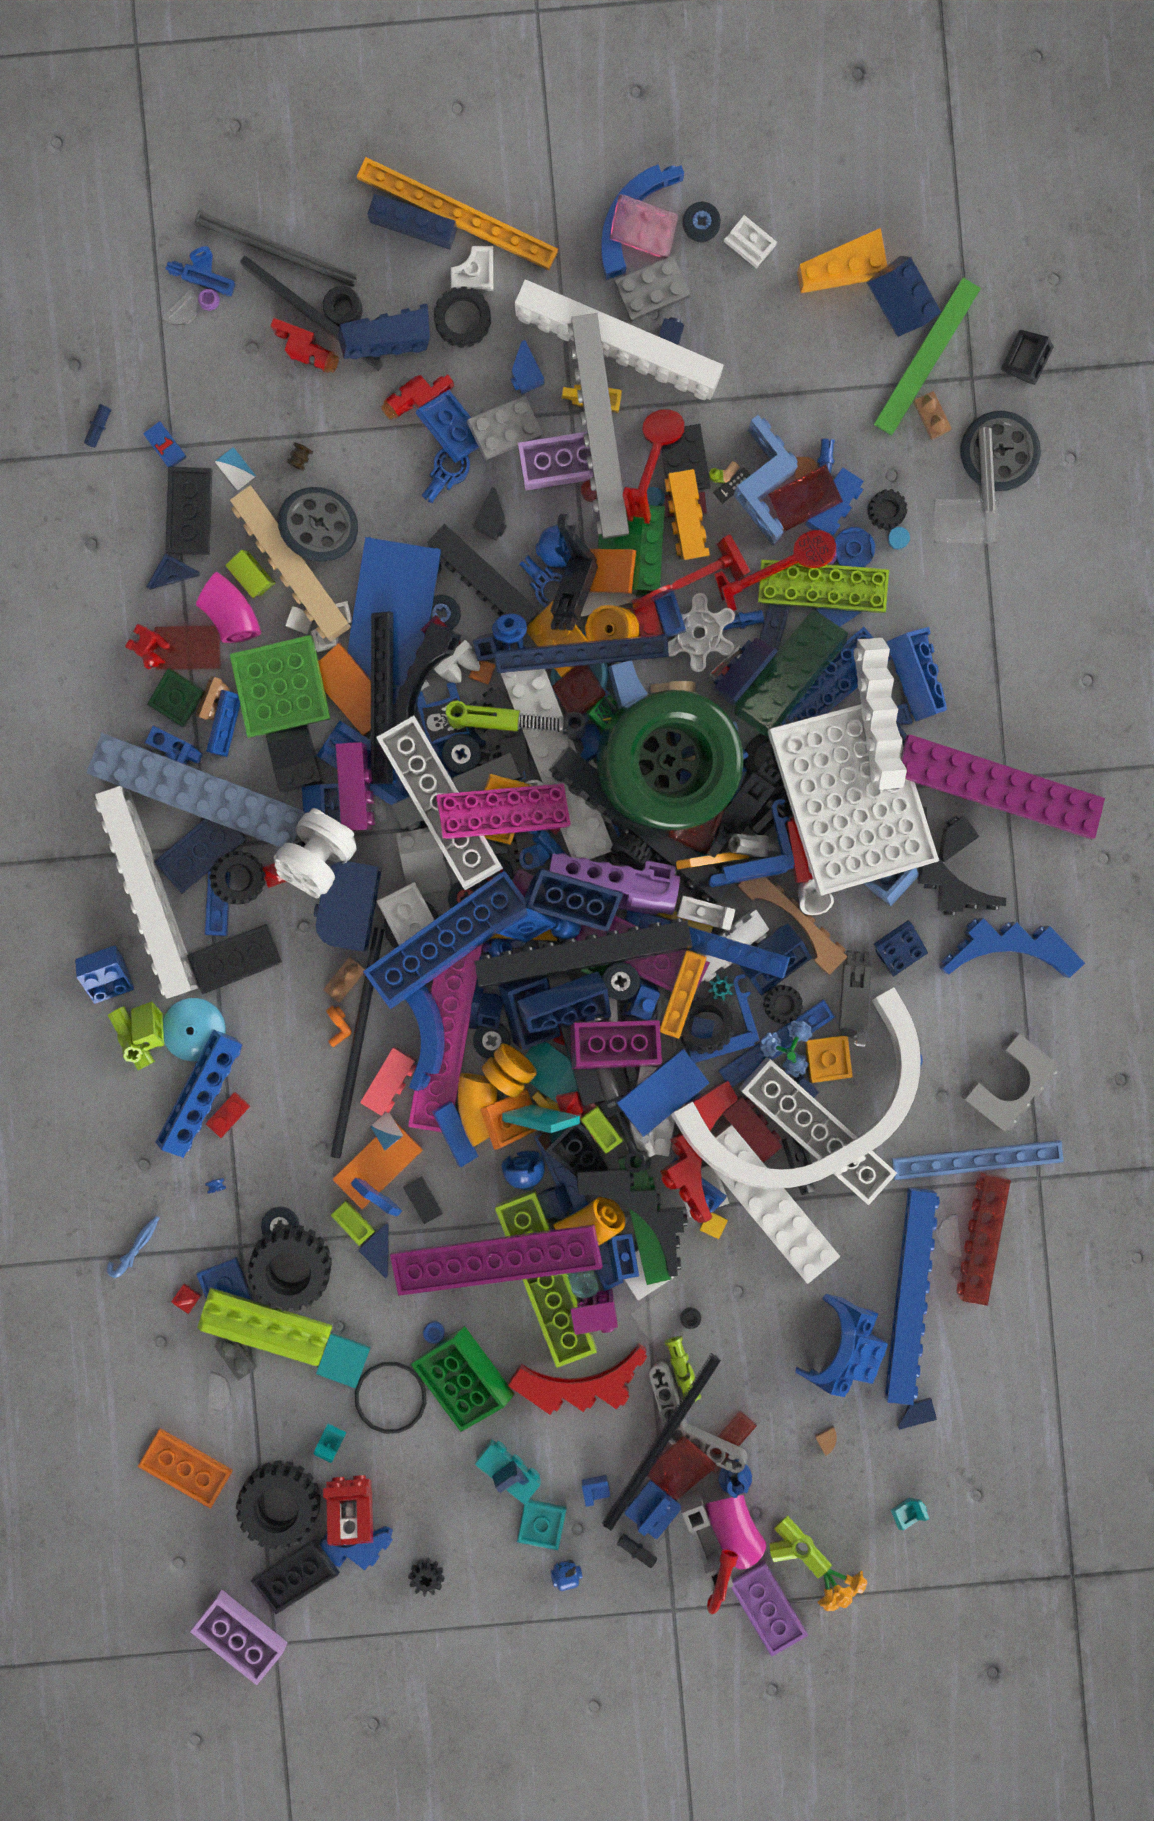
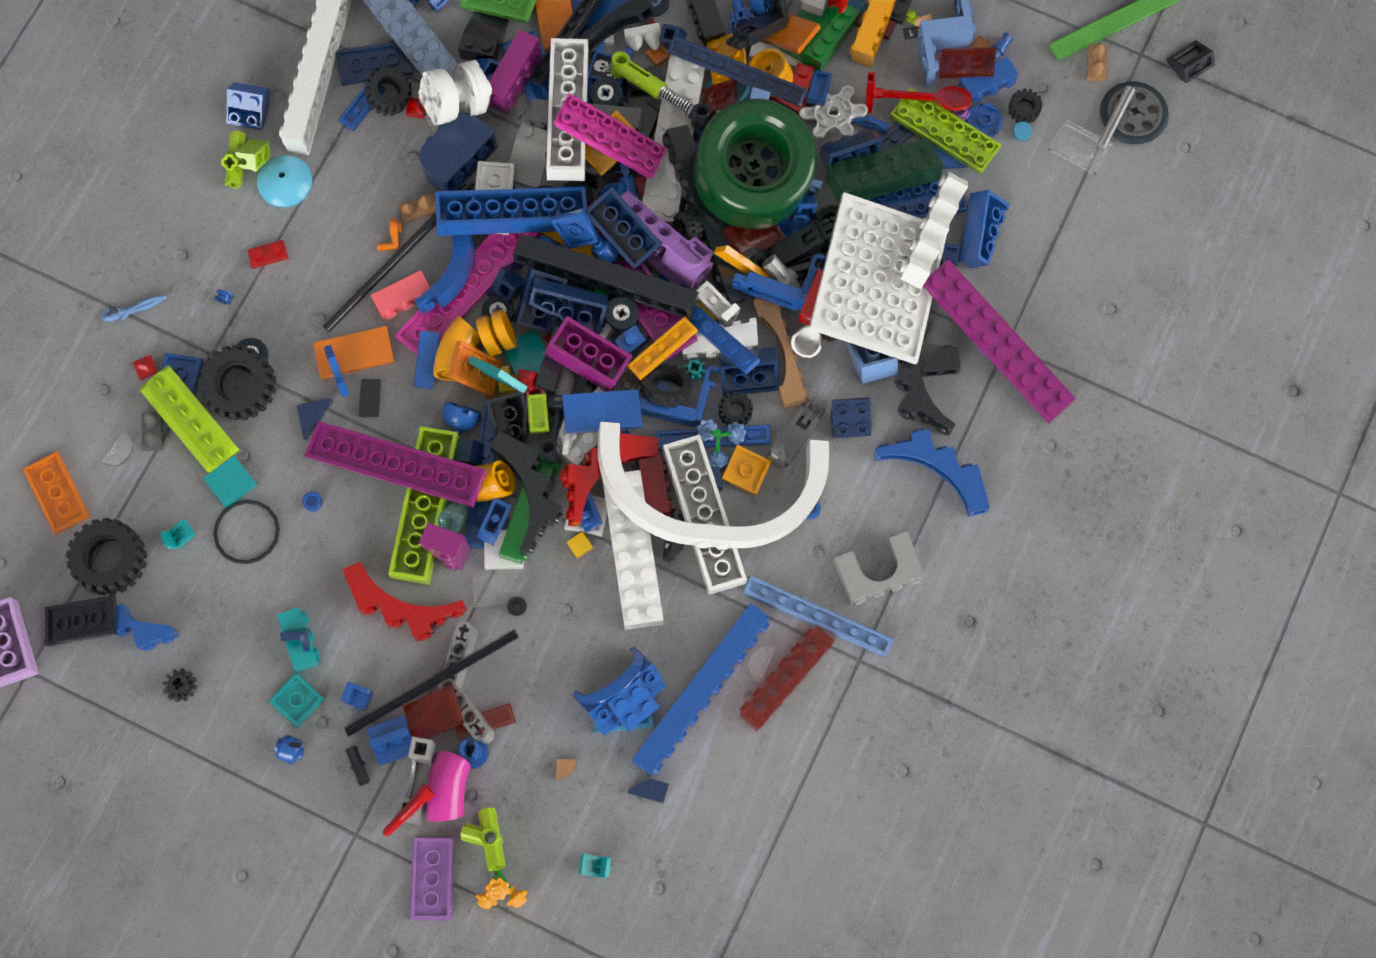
camera: 30 degrees right, 15 degrees down
(196, 1083) = (263, 213): blue brick -> none
(234, 959) = (348, 149): black tile -> none
(345, 1491) = (160, 587): red brick -> none
(352, 1222) = (306, 384): lime tile -> none
(386, 1130) = (376, 329): sticker -> none
(463, 1379) = (311, 547): green slope -> none
(510, 629) = (695, 30): blue piece -> none
(680, 1364) = (487, 634): lime piece -> none
(730, 558) = (819, 61): red piece -> none

